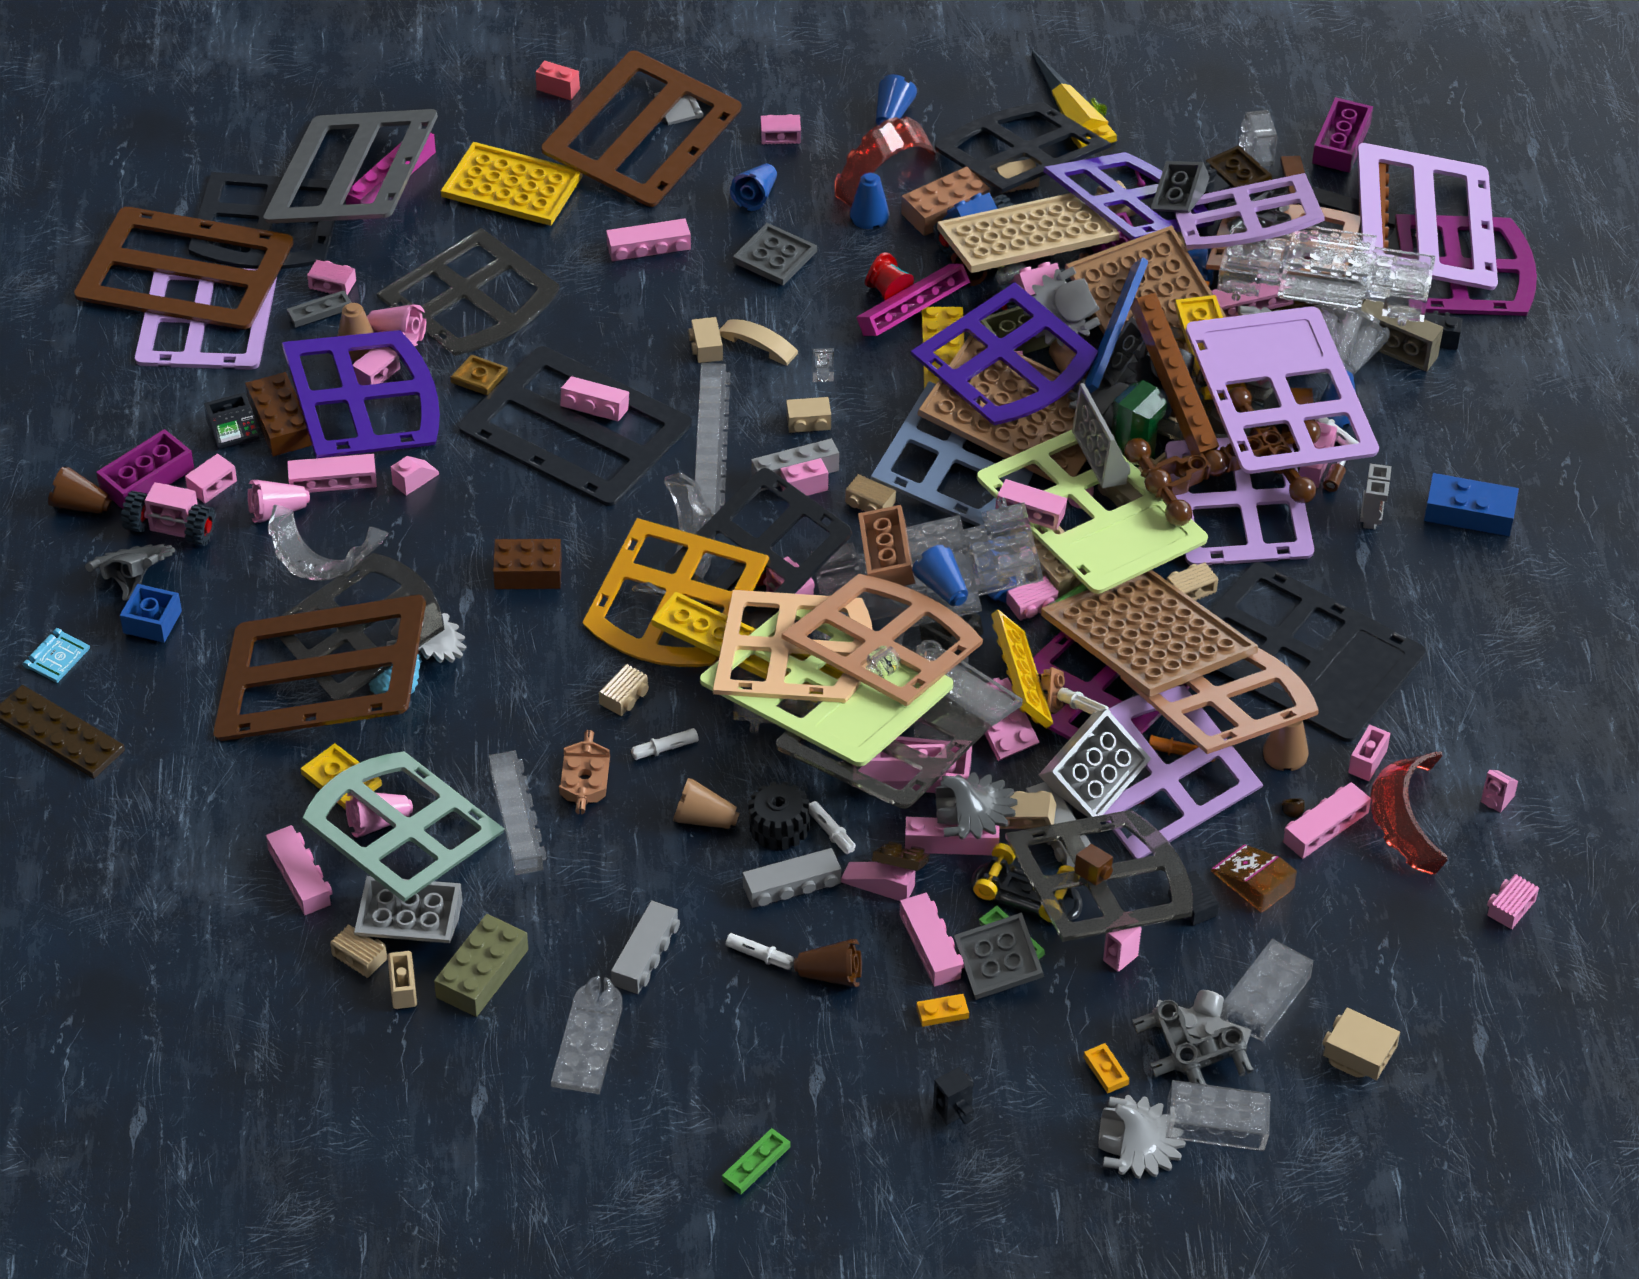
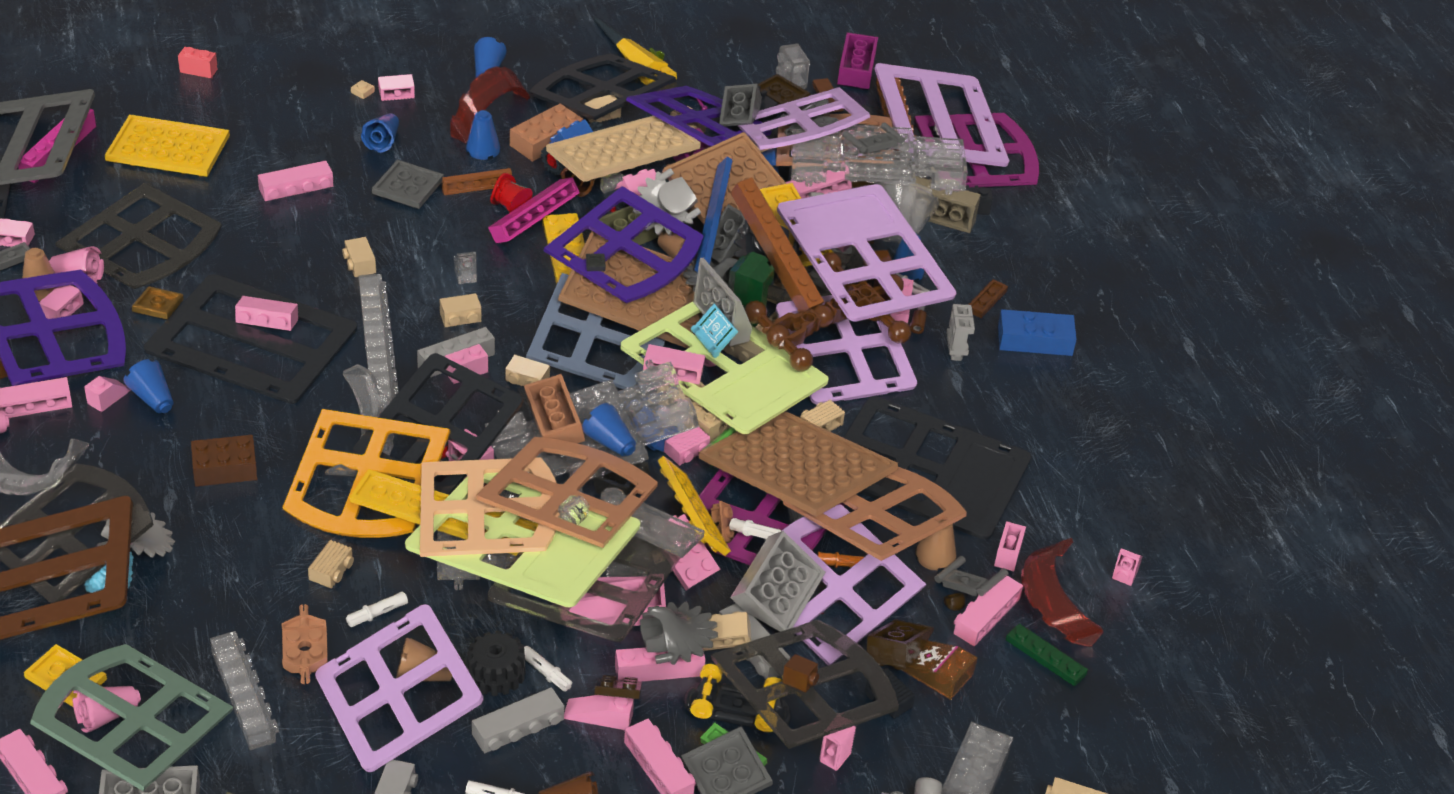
camera: 15 degrees left, 5 degrees down
(460, 471) = (150, 385): none -> blue cone
(666, 829) = (392, 689): none -> lavender window
(678, 162) = (249, 126): reddish brown door -> none
(684, 110) = (305, 75): light grey piece -> none
(741, 128) = (362, 89): none -> tan plate
(759, 336) = (425, 259): tan slope -> none
(849, 257) = (471, 182): none -> dark orange plate
(966, 374) = (595, 262): none -> pearl dark grey tile
(1085, 469) = (714, 330): none -> medium azure piece
(1215, 845) = (898, 643): none -> dark brown slope
(1309, 787) = (967, 582): none -> dark grey plate
(1325, 253) = (877, 142): none -> dark grey plate
(1381, 877) = (1047, 655): none -> dark green plate
(1424, 456) = (987, 298): none -> reddish brown tile
(1512, 901) = (1166, 661): bright pink brick -> none

